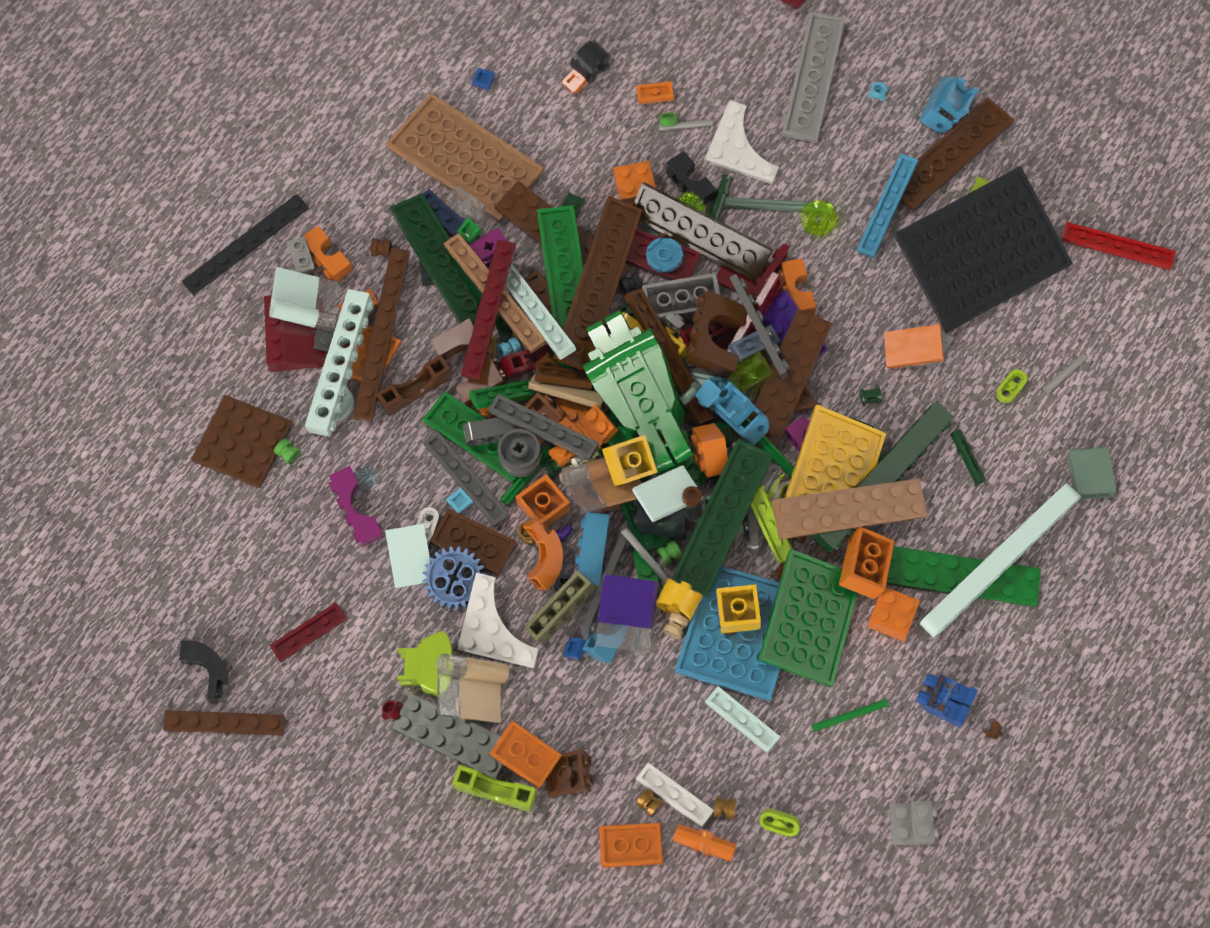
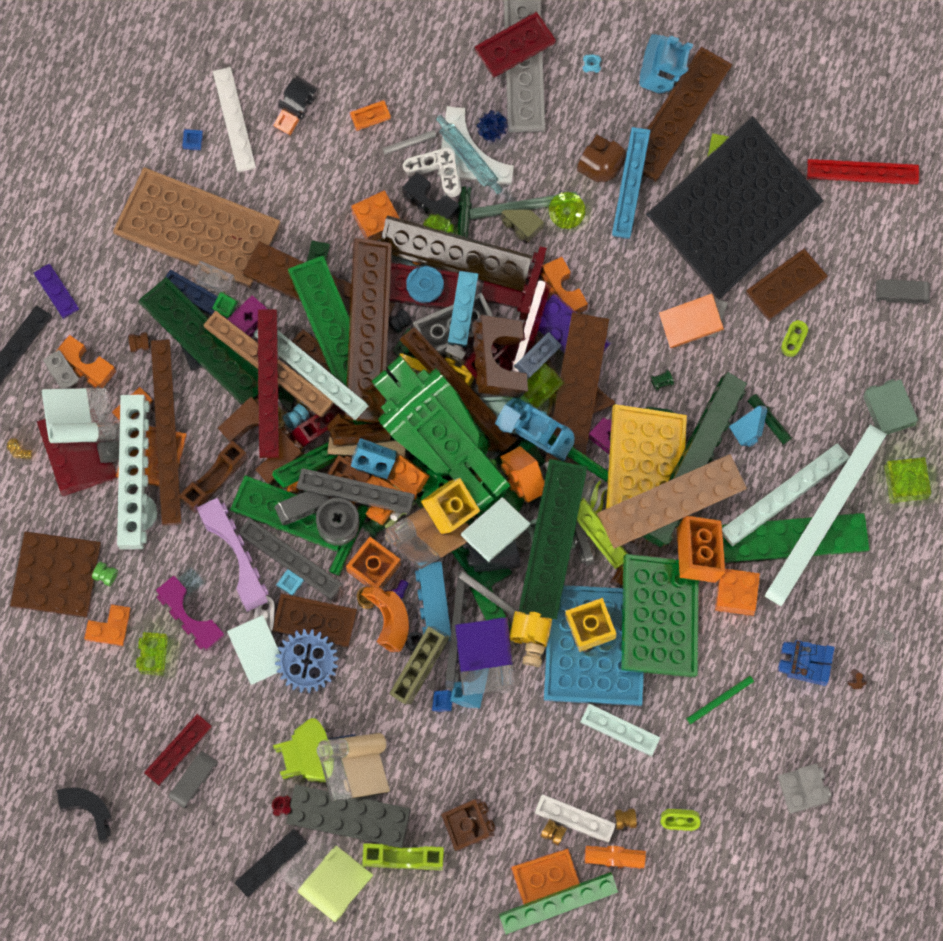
camera: 20 degrees left, 5 degrees up
(223, 722) = (120, 859): reddish brown plate -> none
(239, 321) = (16, 451): none -> clear yellow arm
(280, 506) = (111, 632): none -> orange plate
(313, 663) = (191, 780): none -> dark grey beam
(314, 536) = (157, 653): none -> clear neon green brick
(318, 186) = (56, 291): none -> dark purple plate
(365, 762) = (270, 863): none -> black plate
(414, 788) = (325, 876): none -> yellowish green door
(417, 495) = (248, 588): none -> lavender arch
(486, 633) = (350, 706): white plate -> none
(525, 754) = (424, 817): orange tile -> none
(527, 70) = (234, 119): none -> white plate
(571, 397) = (375, 454): none -> dark azure brick
(636, 873) = (558, 903): none -> plate
(668, 119) = (391, 140): bright green tile -> none
(669, 553) = (508, 584): bright green wheel -> none
(690, 393) = (490, 422): sand green arm -> none
(692, 496) = (519, 526): reddish brown tile -> none
(693, 283) = (463, 309): none -> medium azure plate
(707, 149) = (439, 163): none -> white beam
(737, 146) = (469, 155): none -> clear light blue plate
(764, 333) = (535, 331): dark grey plate -> none
(767, 125) = (492, 125): none -> clear blue gear
(774, 219) = (523, 222): none -> olive slope
(808, 57) = (515, 44): none -> dark red plate
(864, 179) = (602, 159): none -> reddish brown brick
(946, 458) = (750, 426): none -> dark azure slope
(964, 532) = (784, 494): none -> light aqua plate
(1016, 334) = (786, 284): none -> reddish brown plate
(1065, 373) = (841, 313): light grey bar -> none
(1092, 546) = (907, 480): none -> clear neon green brick
(1131, 365) = (902, 290): none -> dark grey beam

